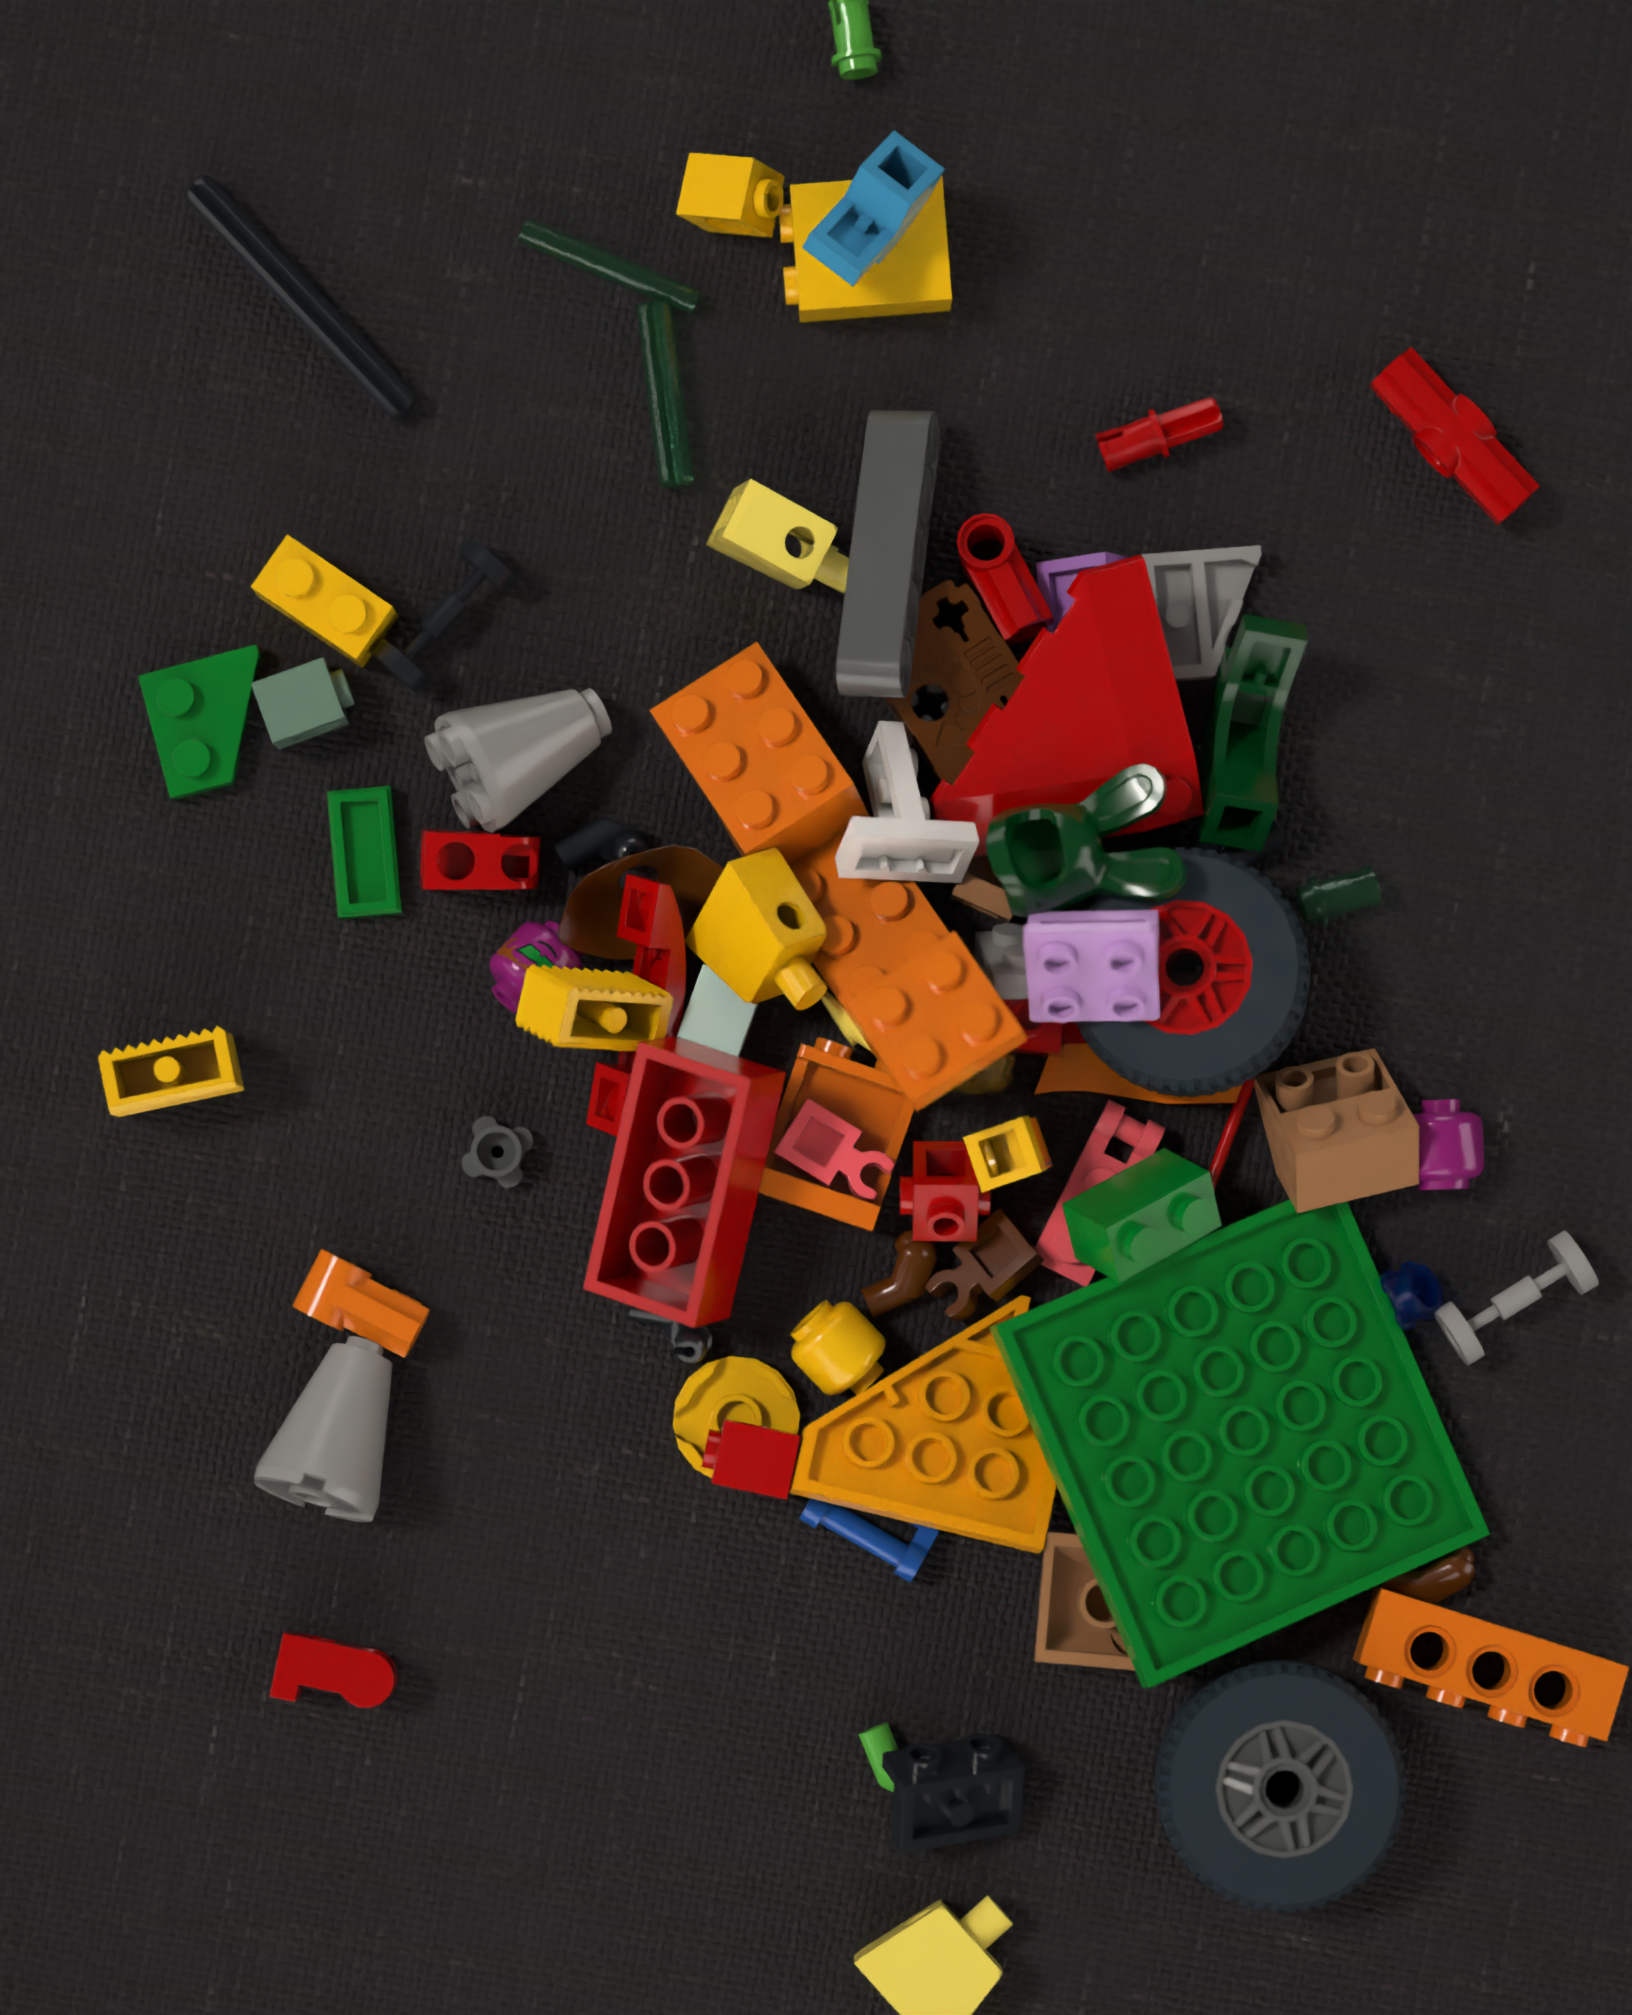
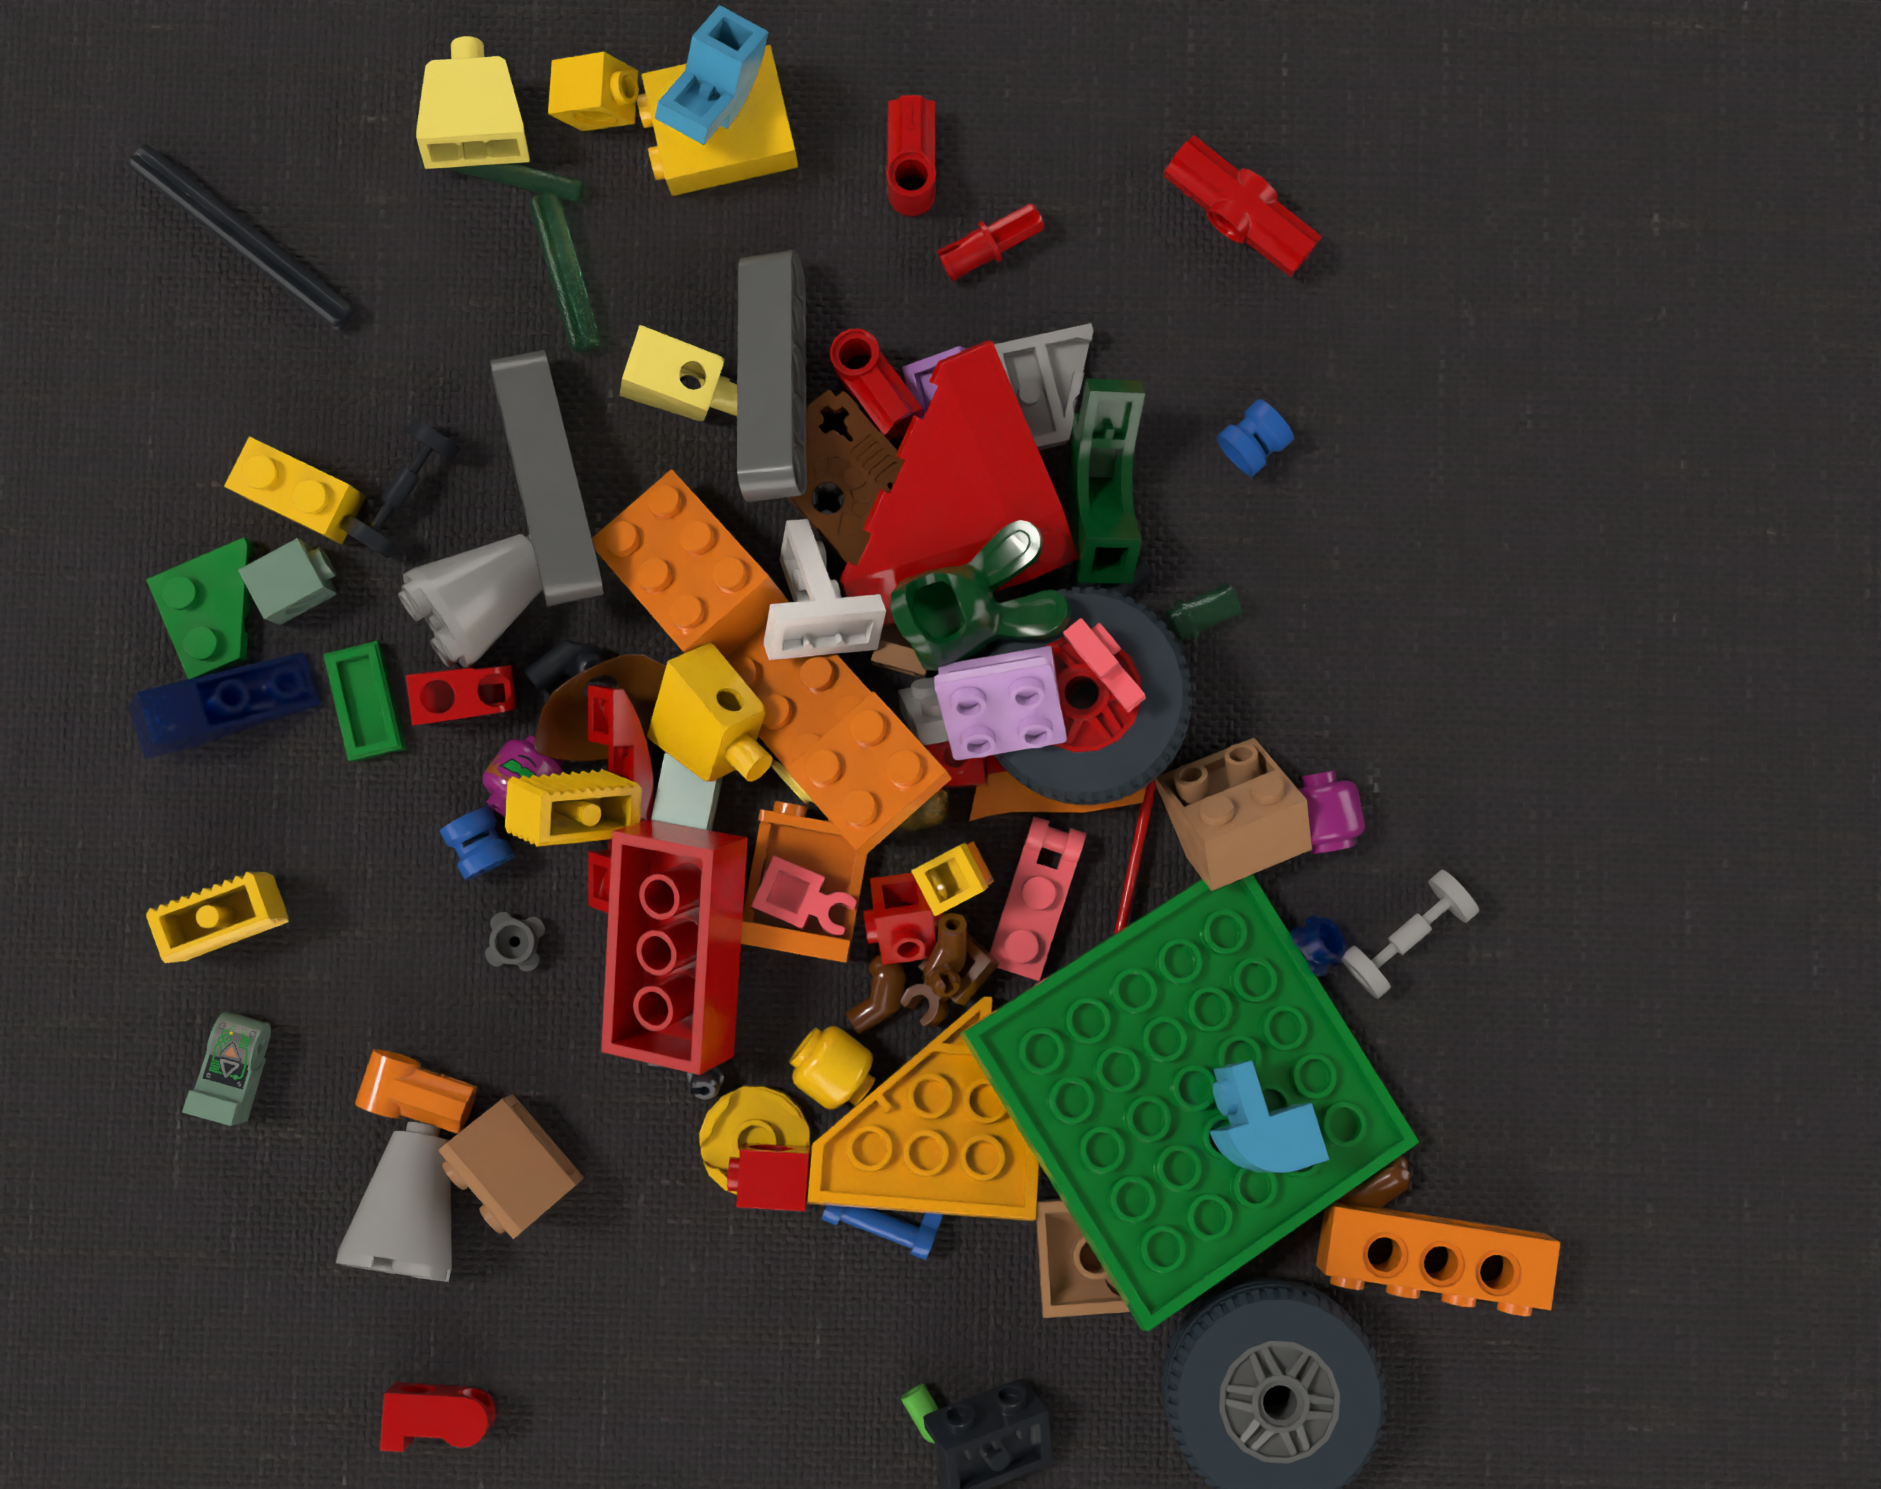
camera: 10 degrees left, 0 degrees up
(156, 1245) = (230, 1070): none -> sand green leg
(203, 831) = (220, 704): none -> clear blue slope
(461, 1401) = (509, 1166): none -> medium nougat slope
(476, 1047) = (483, 854): none -> blue wheel
(588, 194) = (469, 111): none -> light yellow torso
(614, 630) = (546, 478): none -> dark grey beam
(988, 1240) = (947, 956): none -> reddish brown arm
(1084, 316) = (911, 153): none -> red piece
(1141, 1215) = (1077, 913): green brick -> none
(1209, 923) = (1098, 651): none -> coral plate
(1302, 1494) = (1258, 1138): none -> dark azure brick
(1427, 705) = (1255, 437): none -> blue wheel

